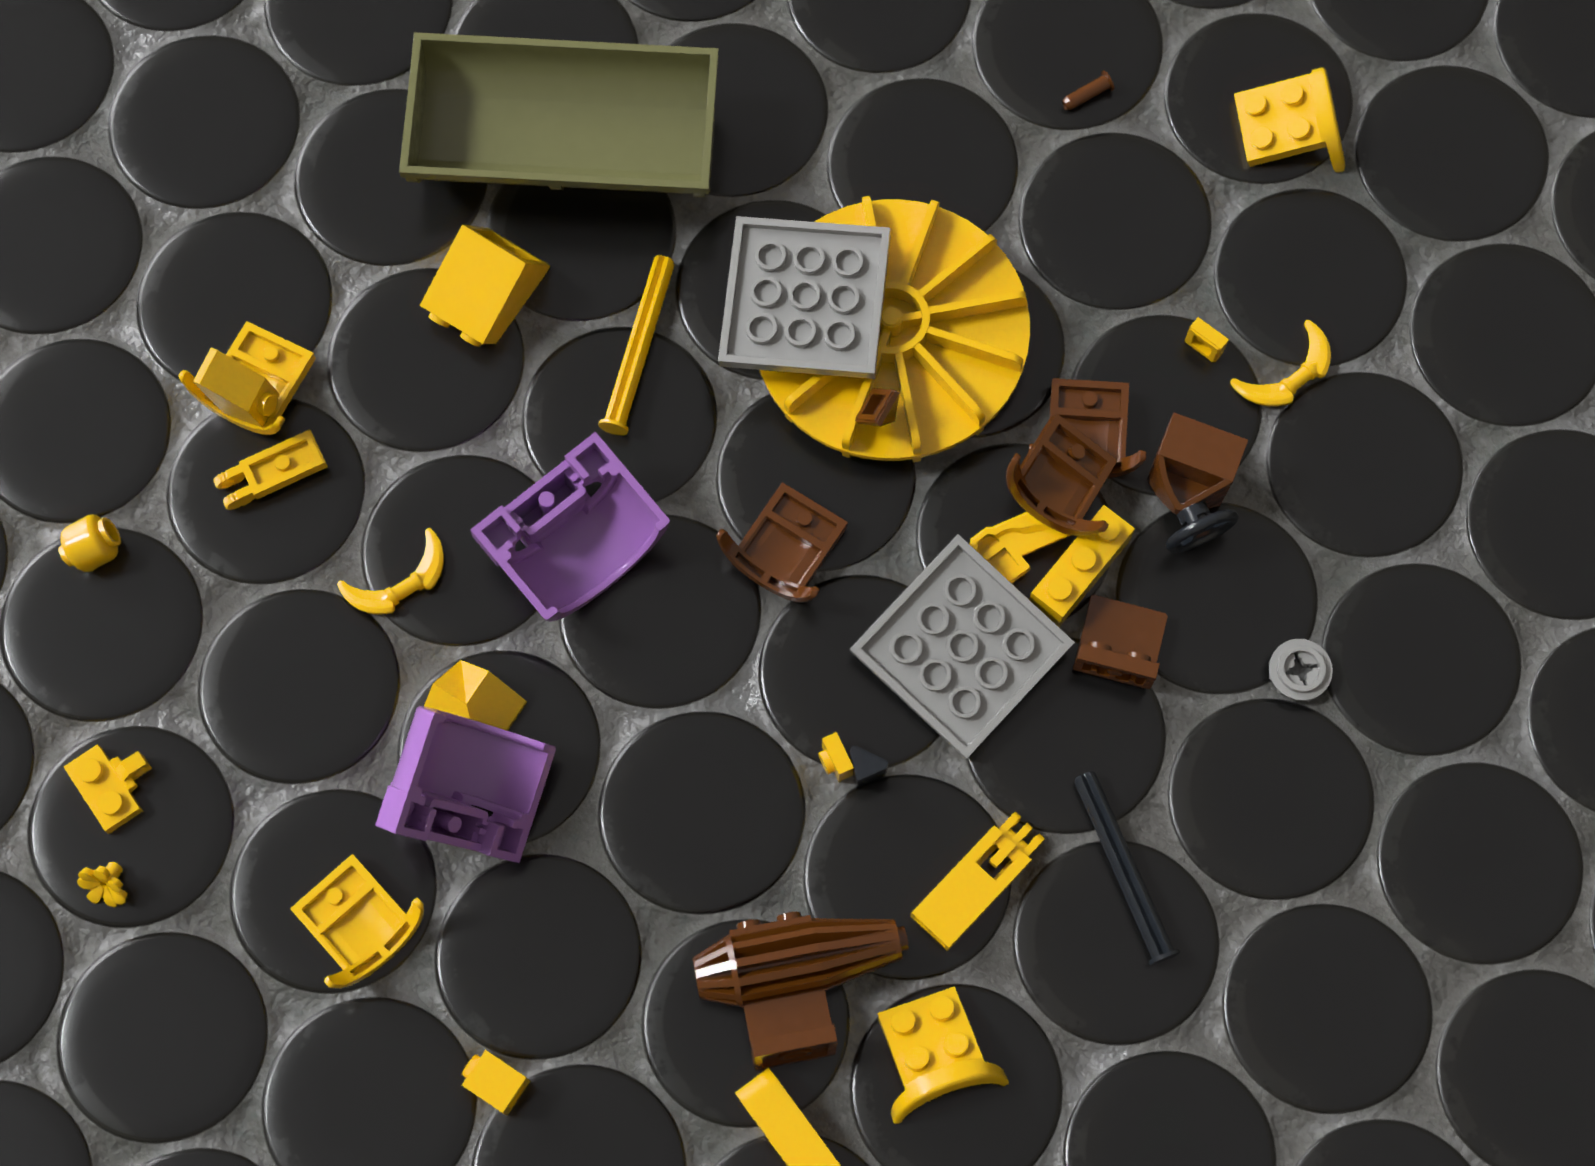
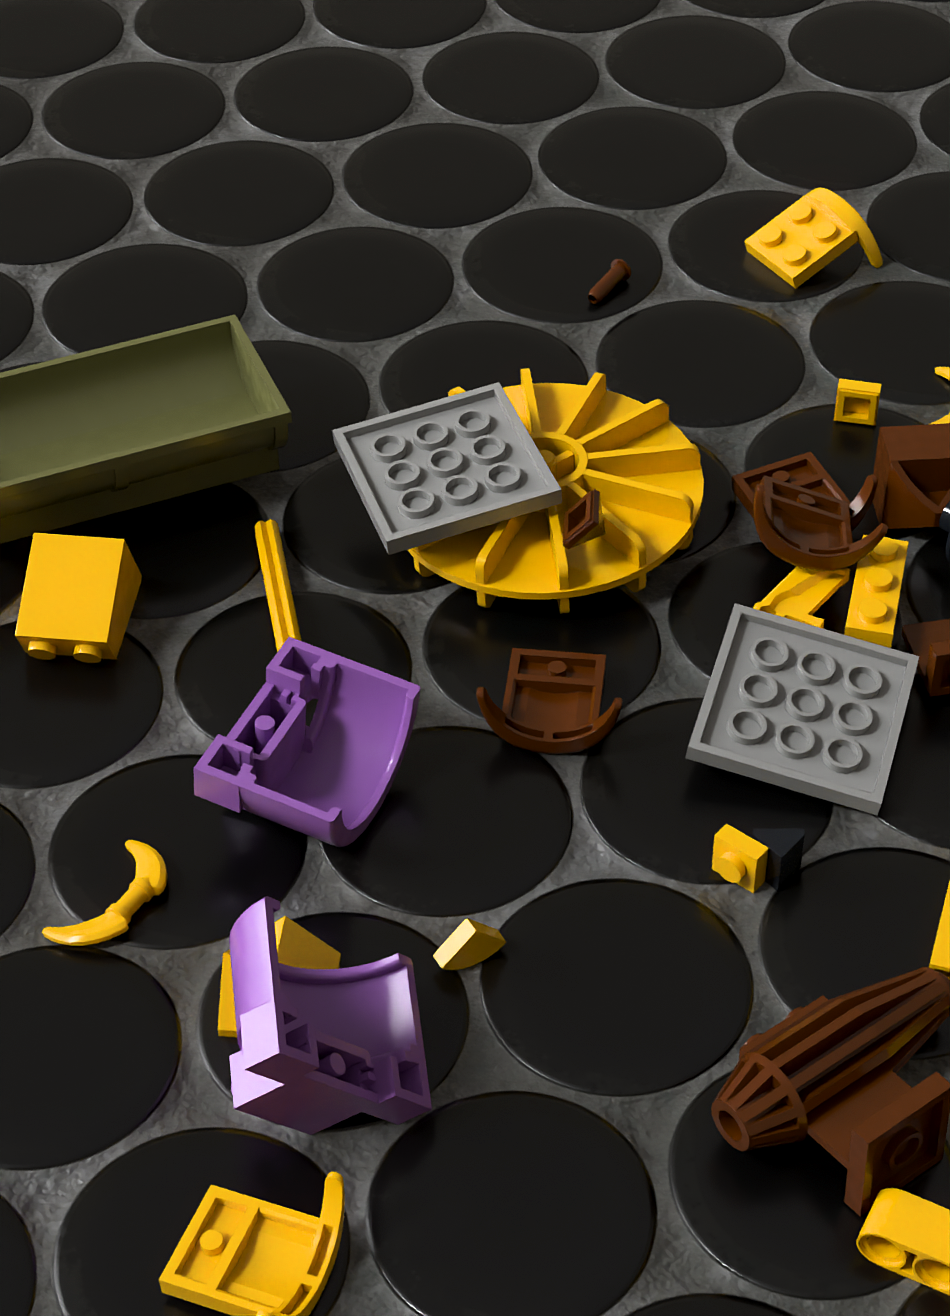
camera: 25 degrees left, 30 degrees down
(613, 739) = (468, 945): none -> yellow tile

